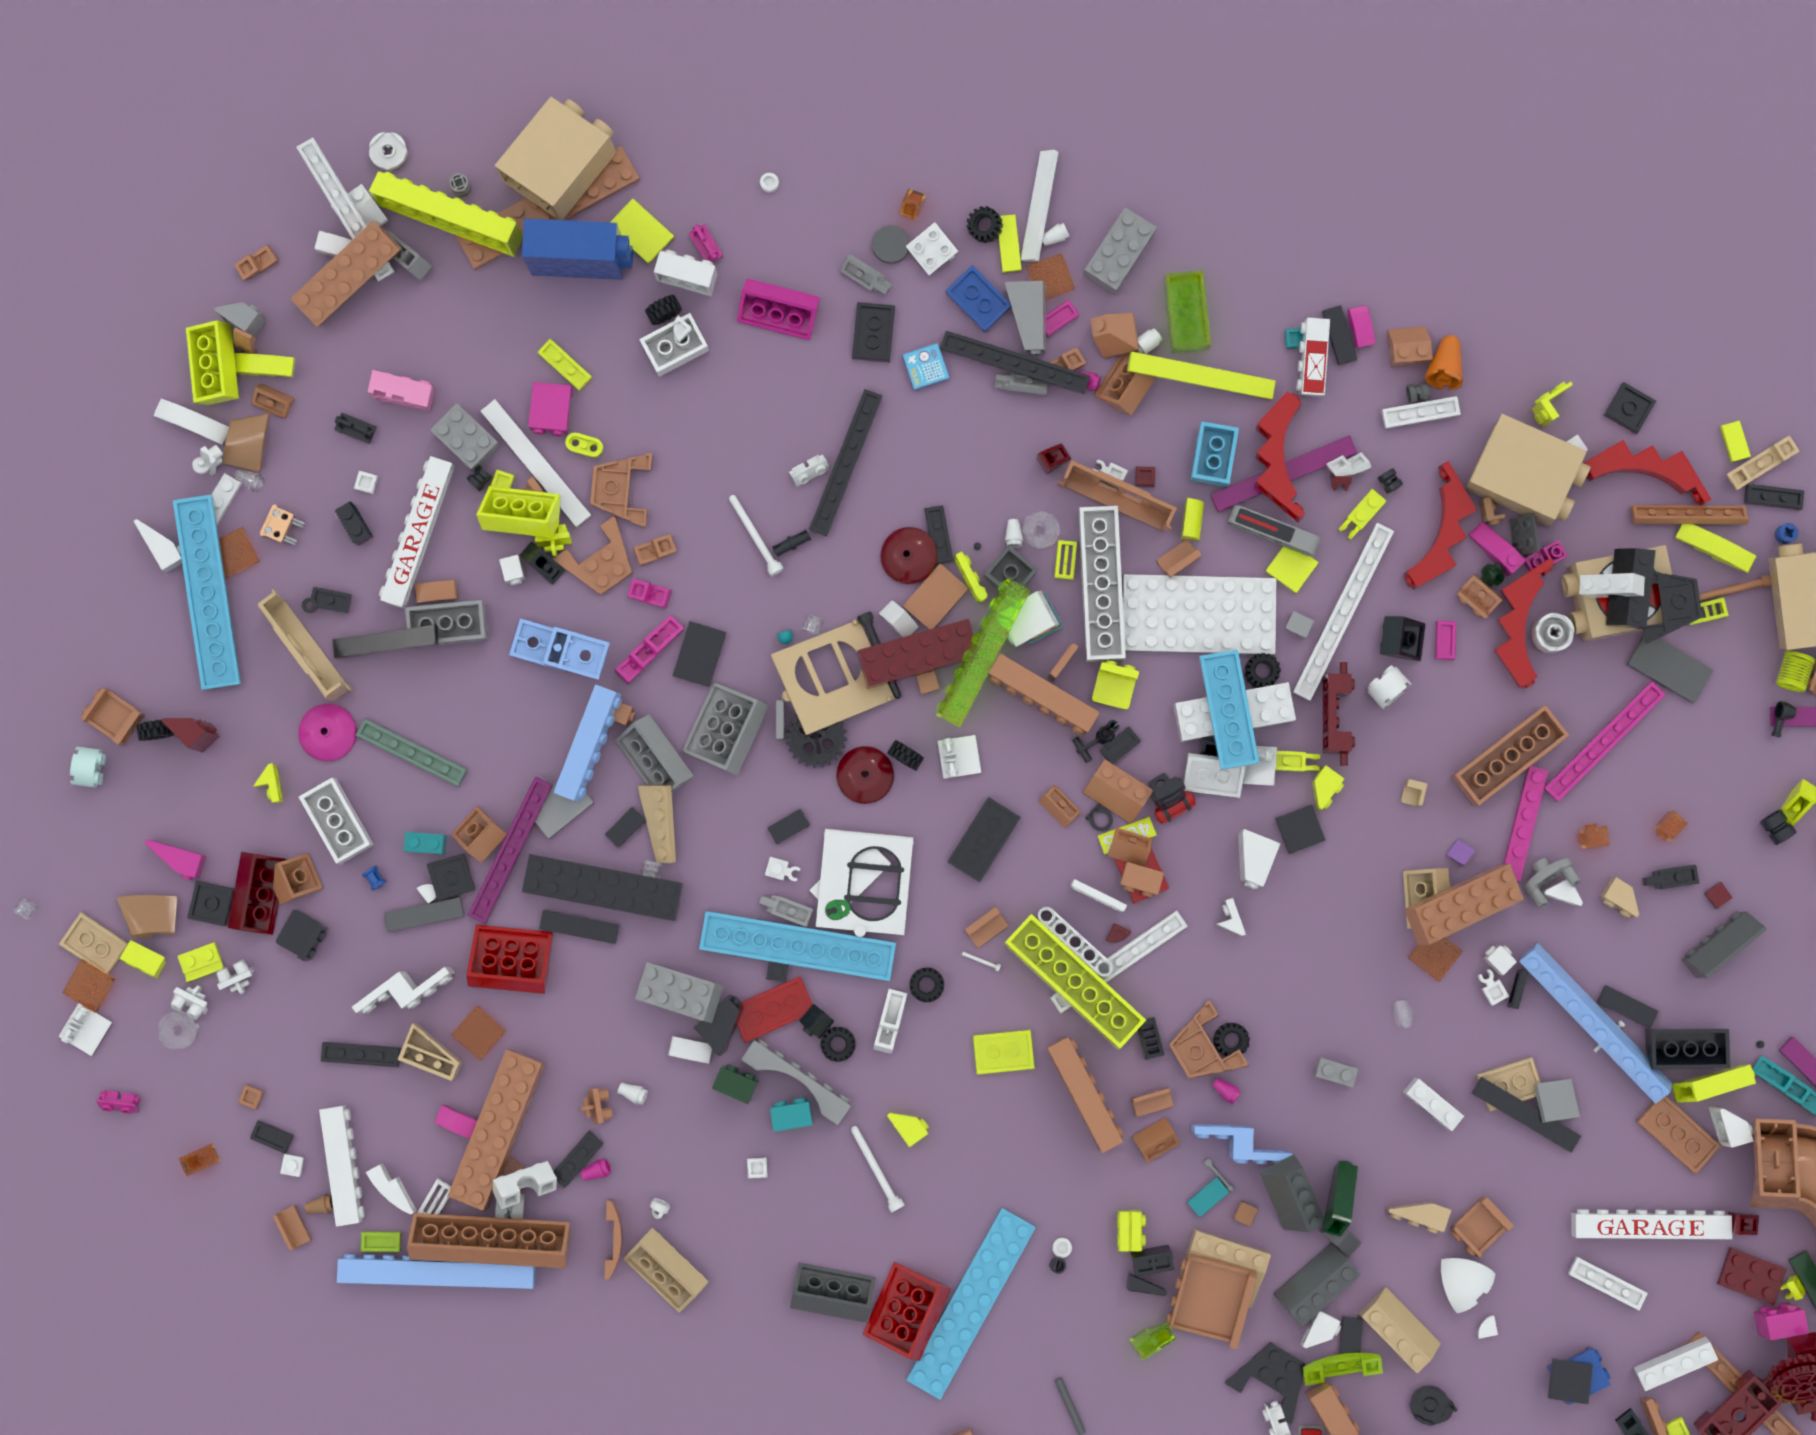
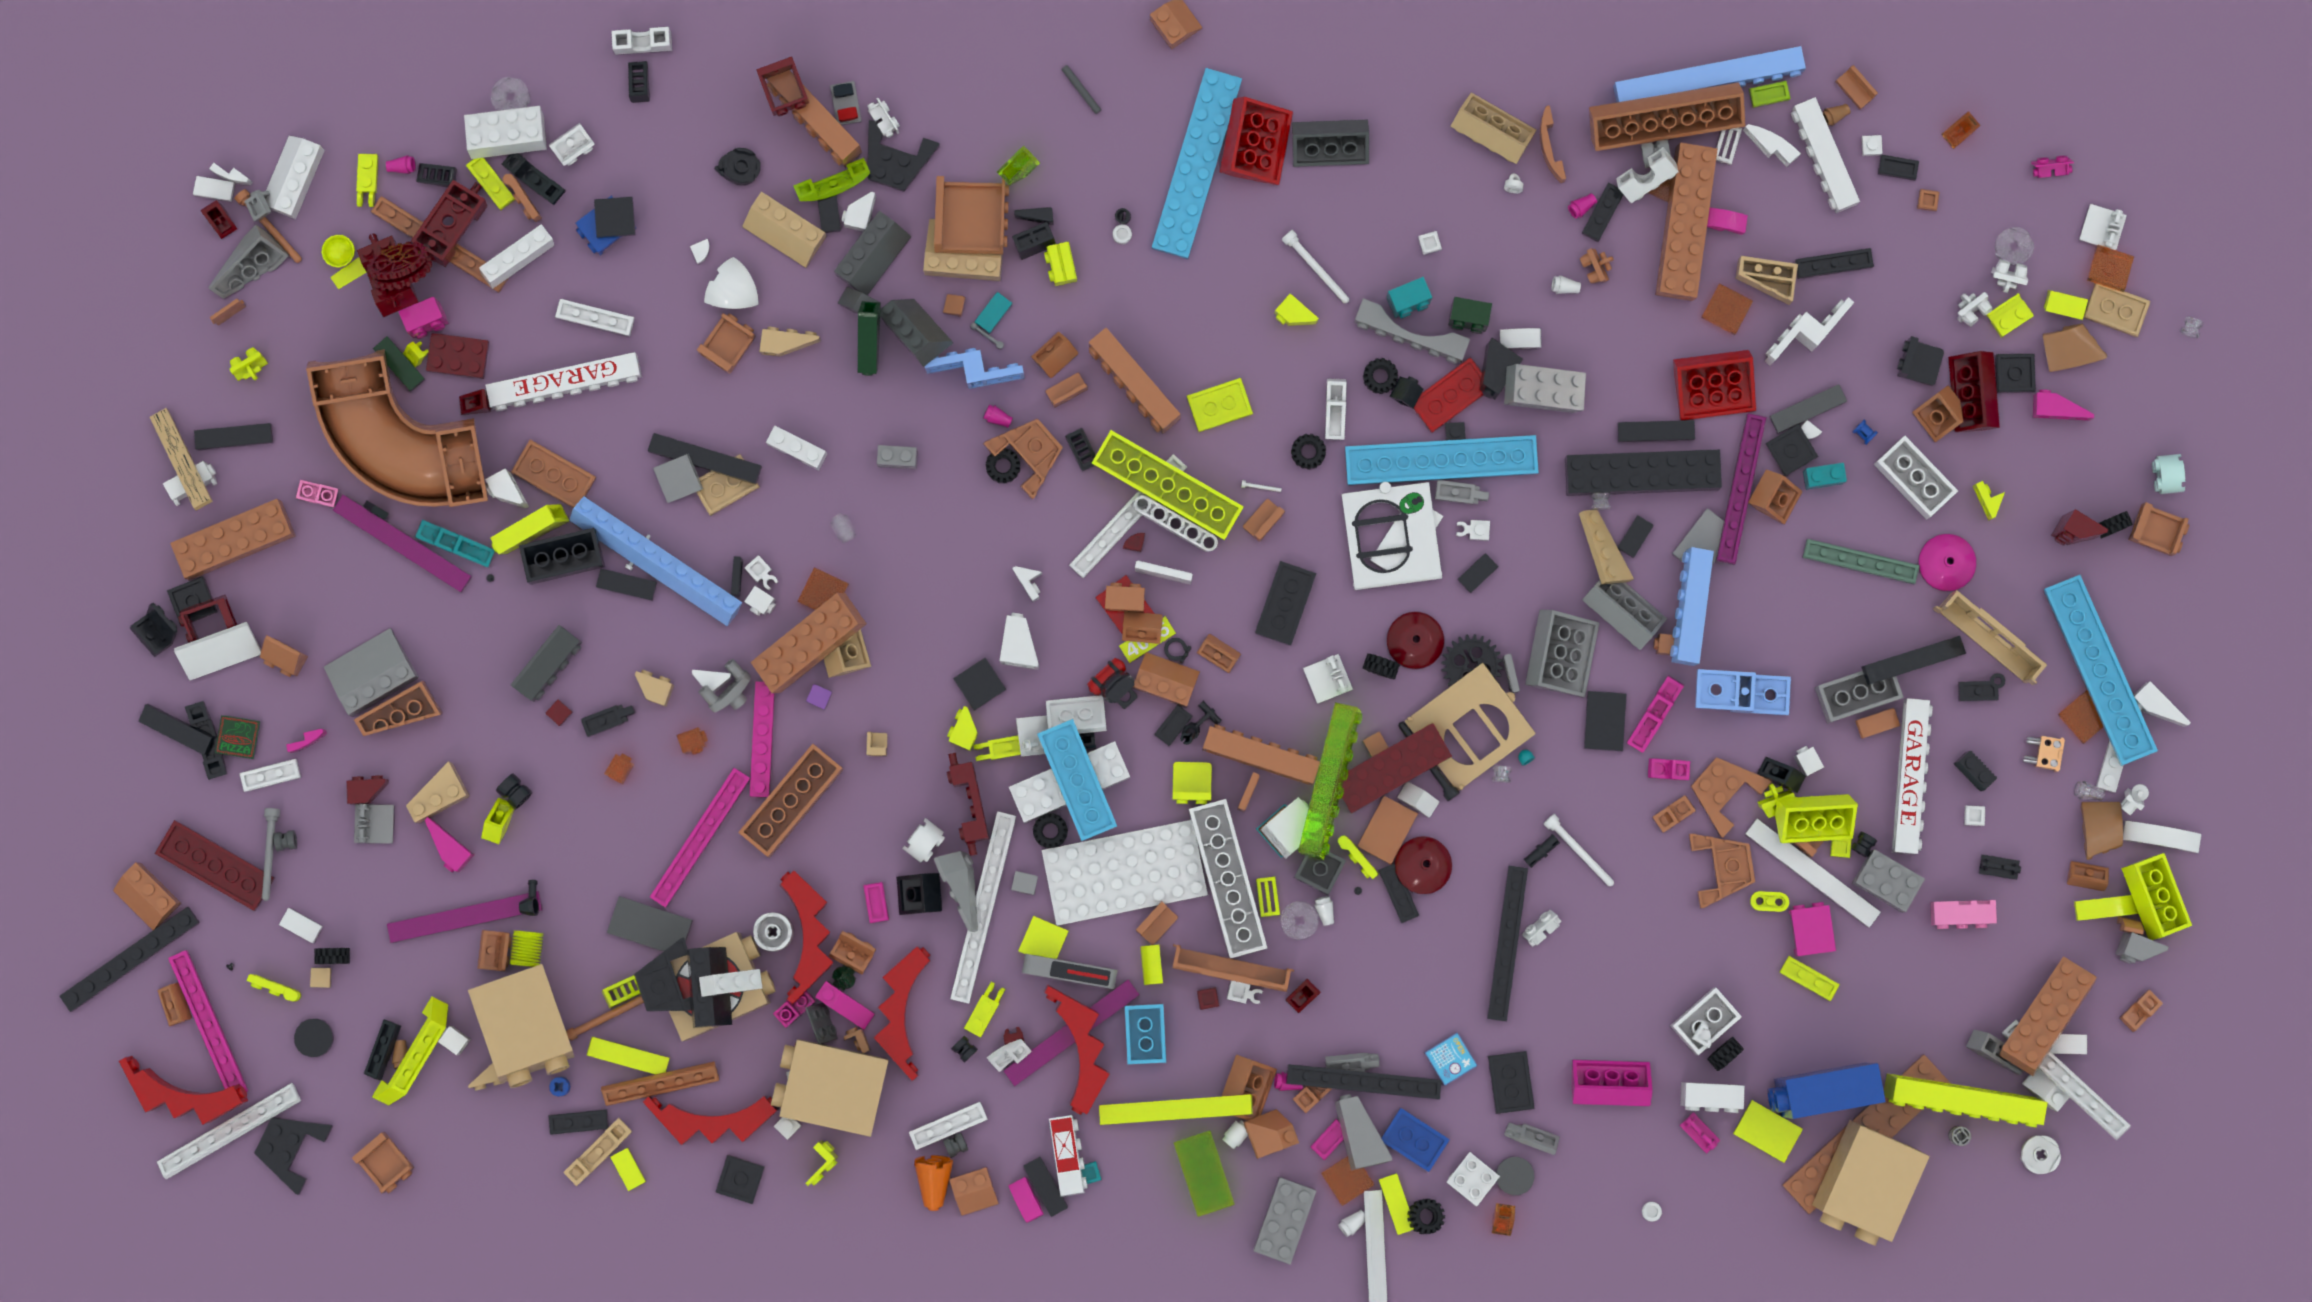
camera: 170 degrees right, 0 degrees up
(1361, 644) = (958, 872): none -> light grey wedge

